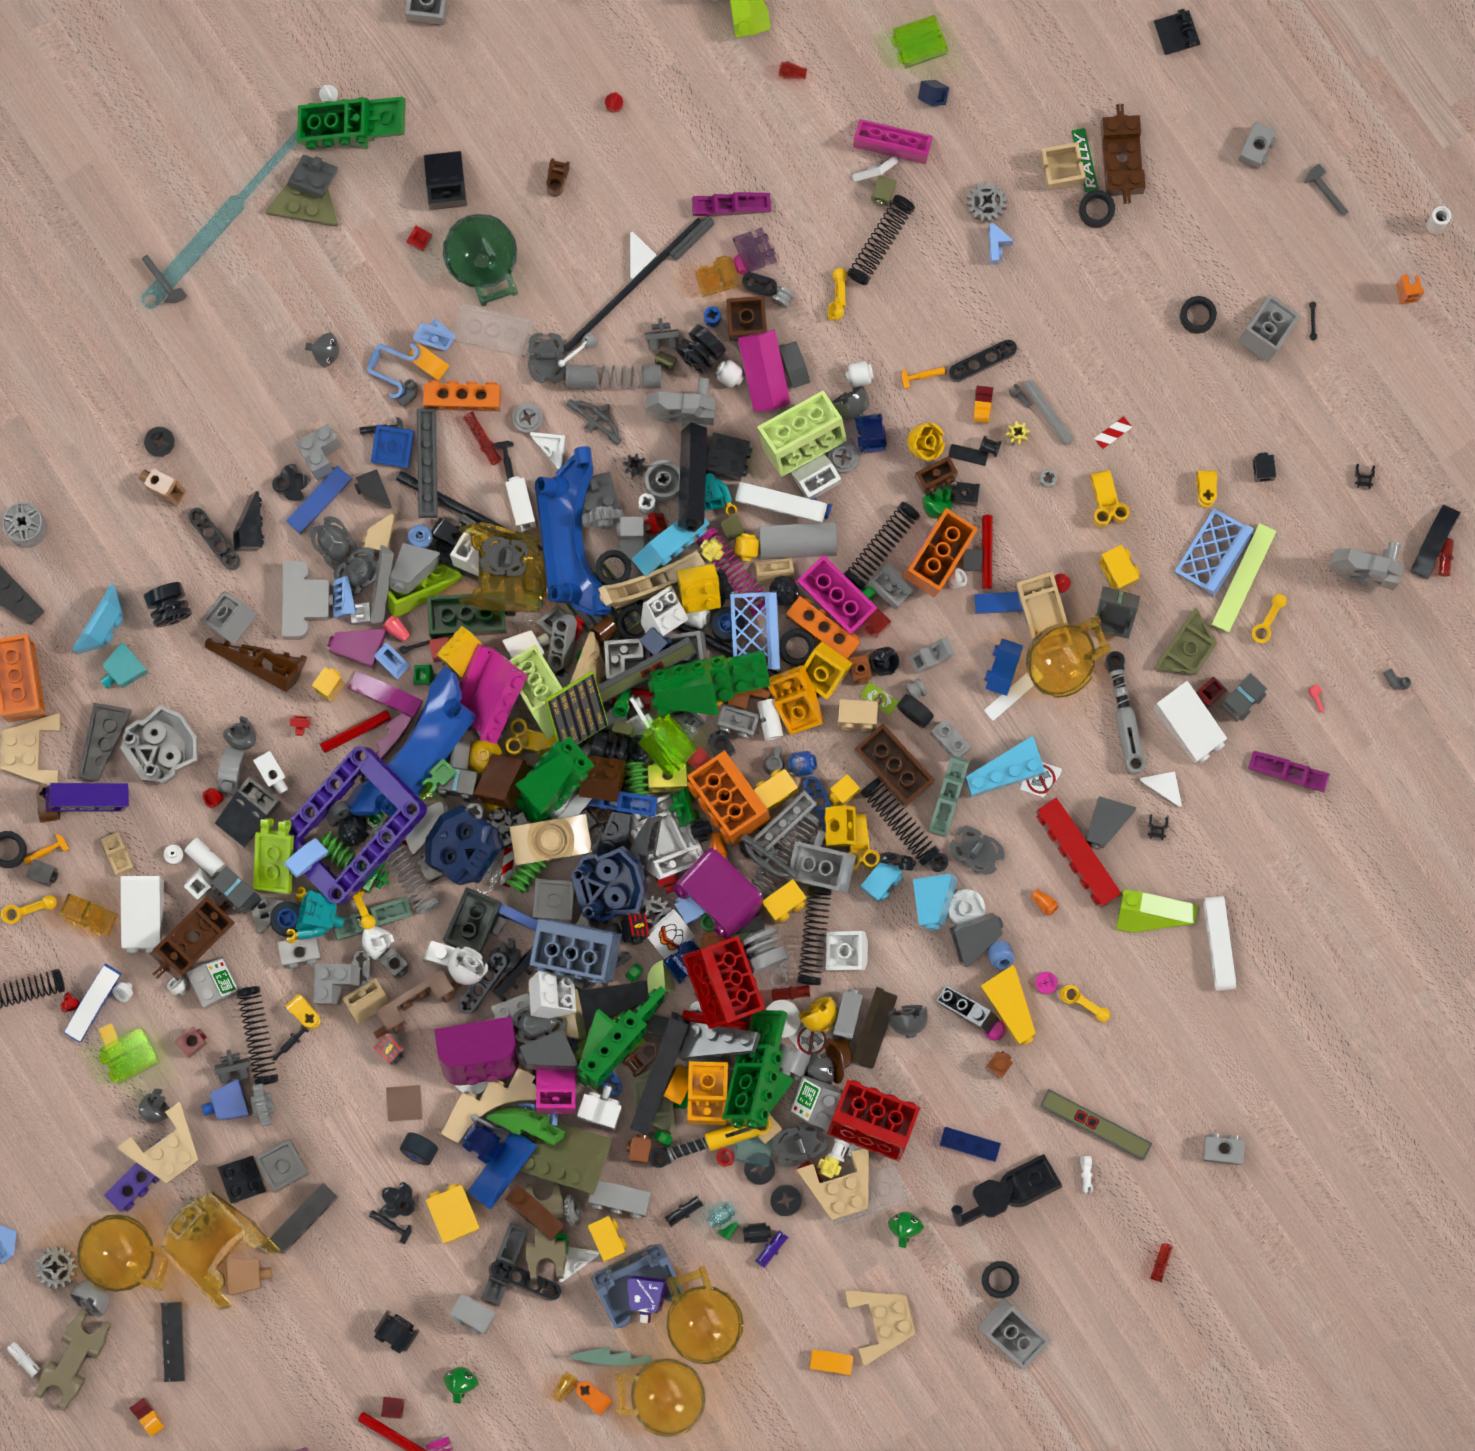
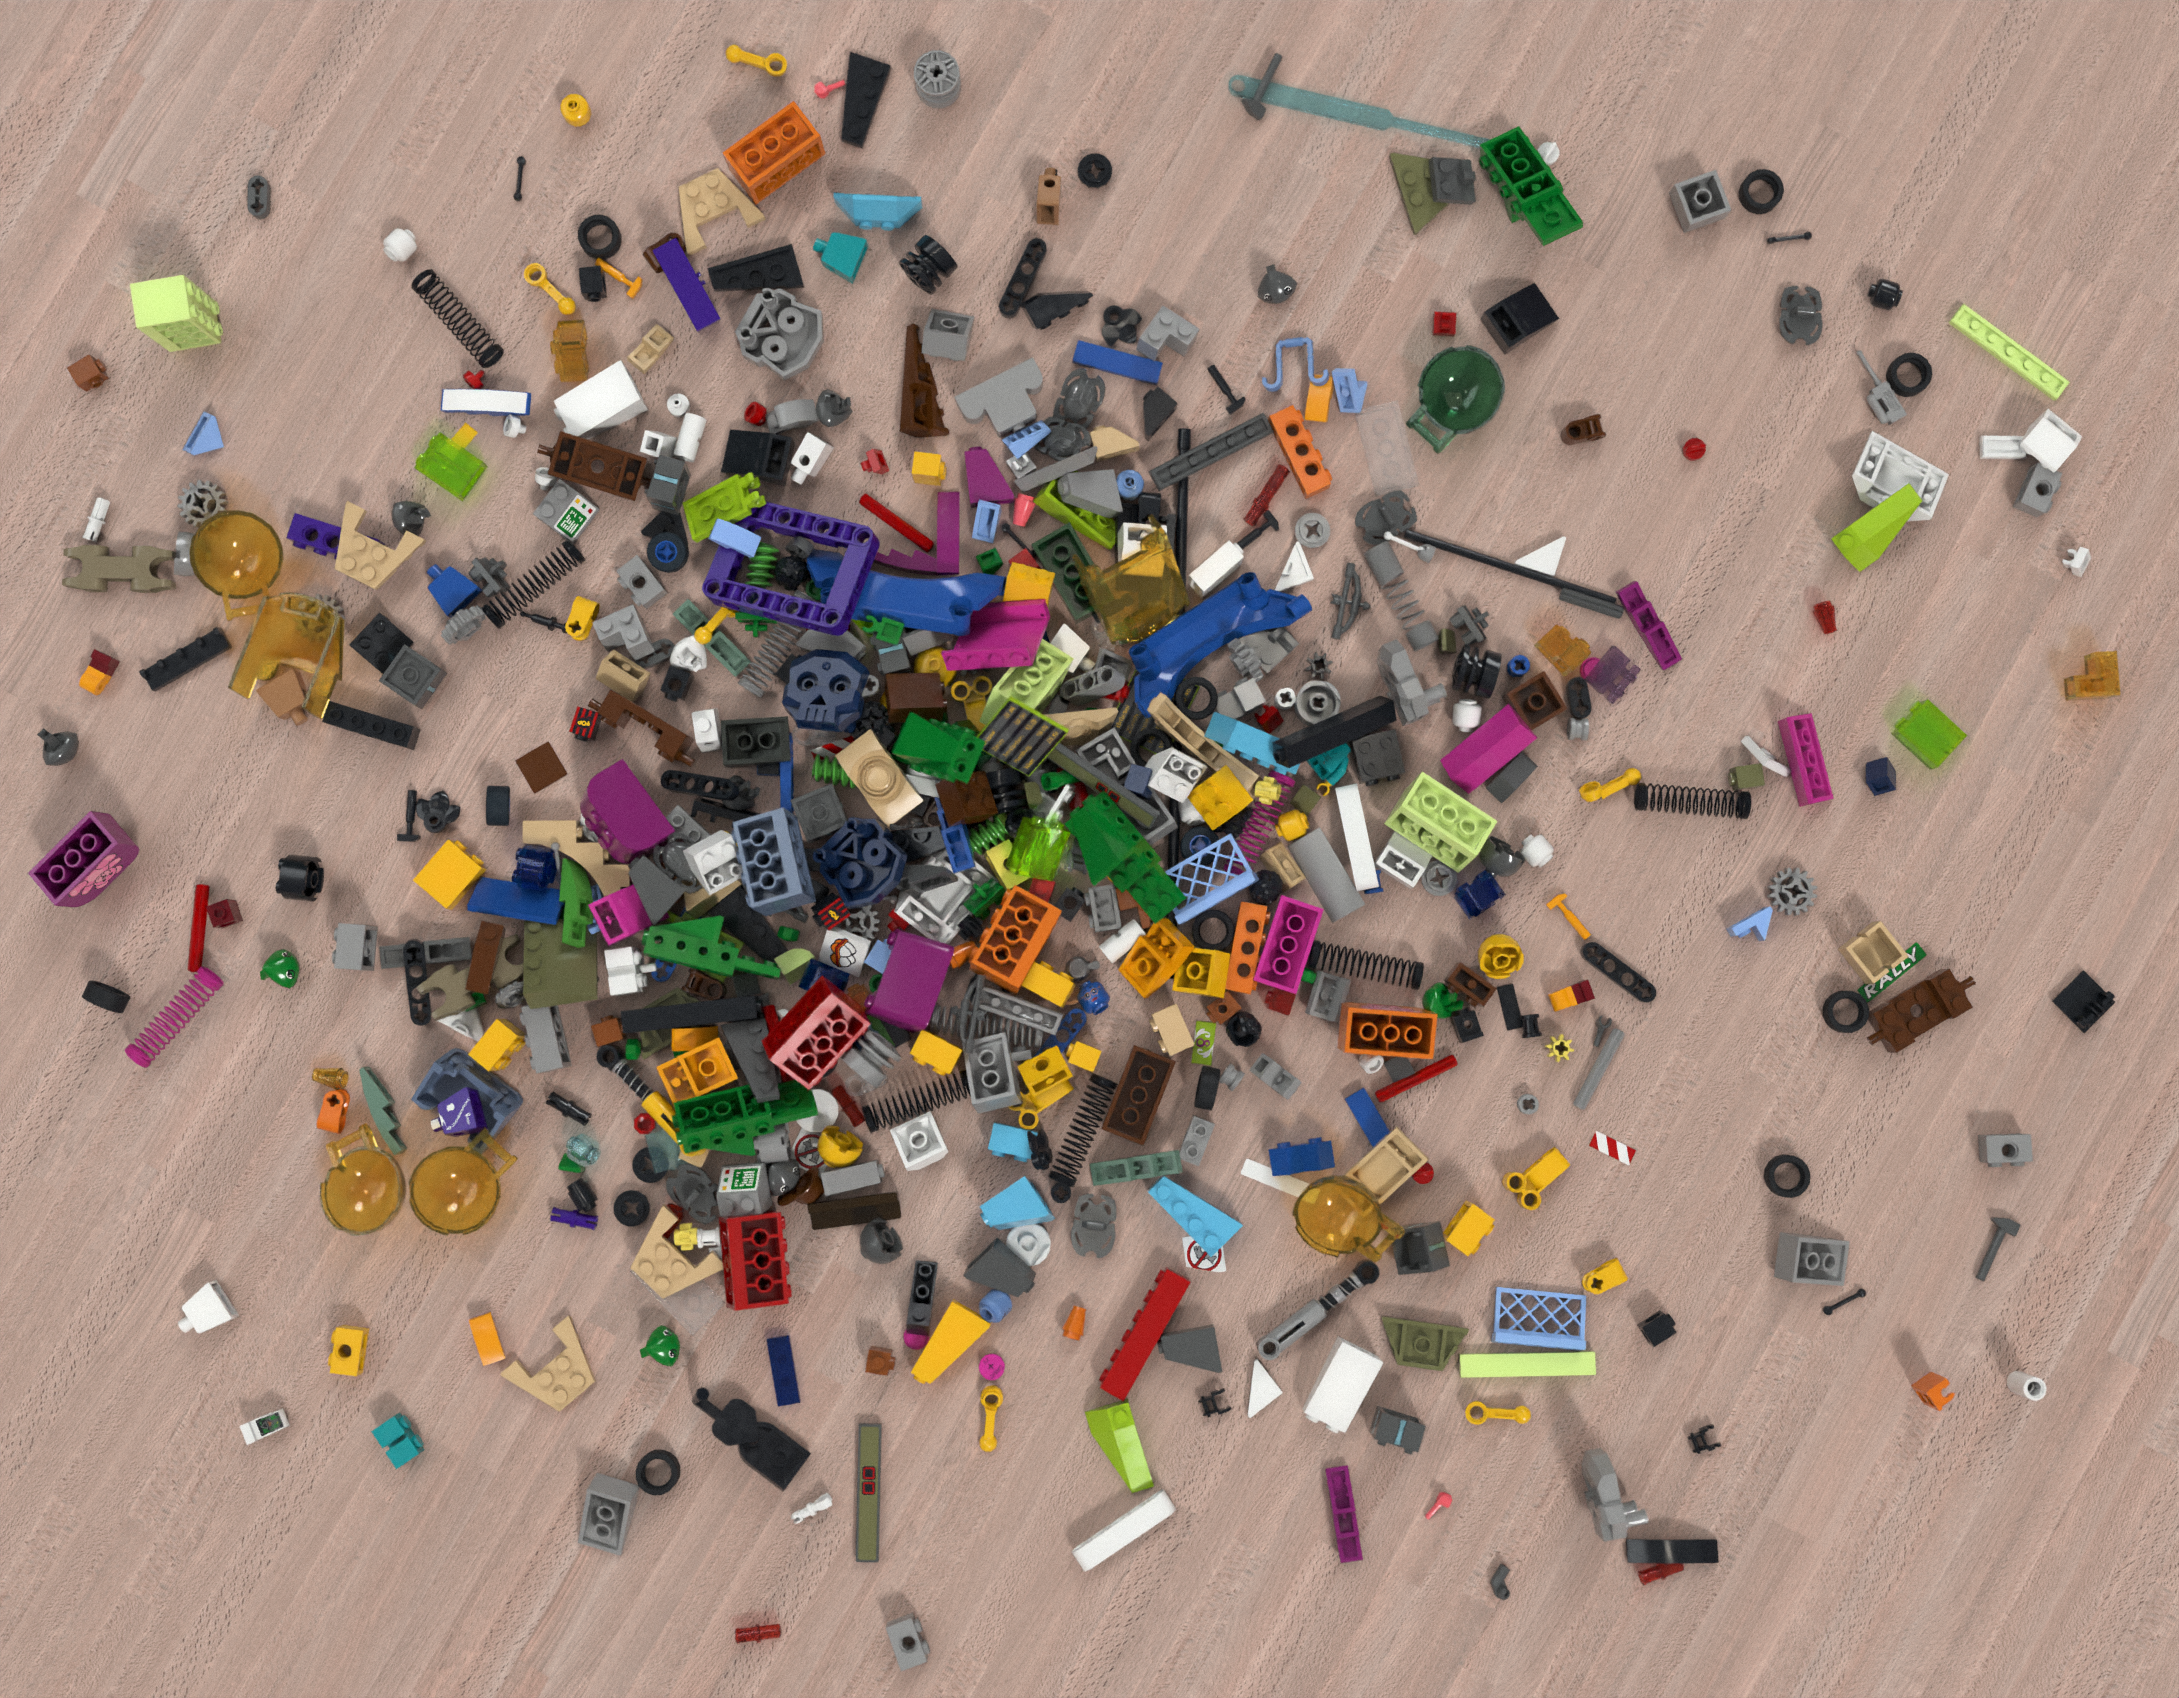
camera: 65 degrees right, 5 degrees up
(182, 1042) = (486, 519): brick -> none
(315, 916) = (681, 579): teal torso -> none
(392, 446) = (1211, 408): blue tile -> none
(410, 392) = (1276, 398): dark grey arm -> none
(467, 966) = (703, 759): white cylinder -> none
(503, 556) = (1148, 577): dark grey shield -> none
(604, 630) = (1126, 721): reddish brown piece -> none
(1211, 692) = (1386, 1389): dark red slope -> none

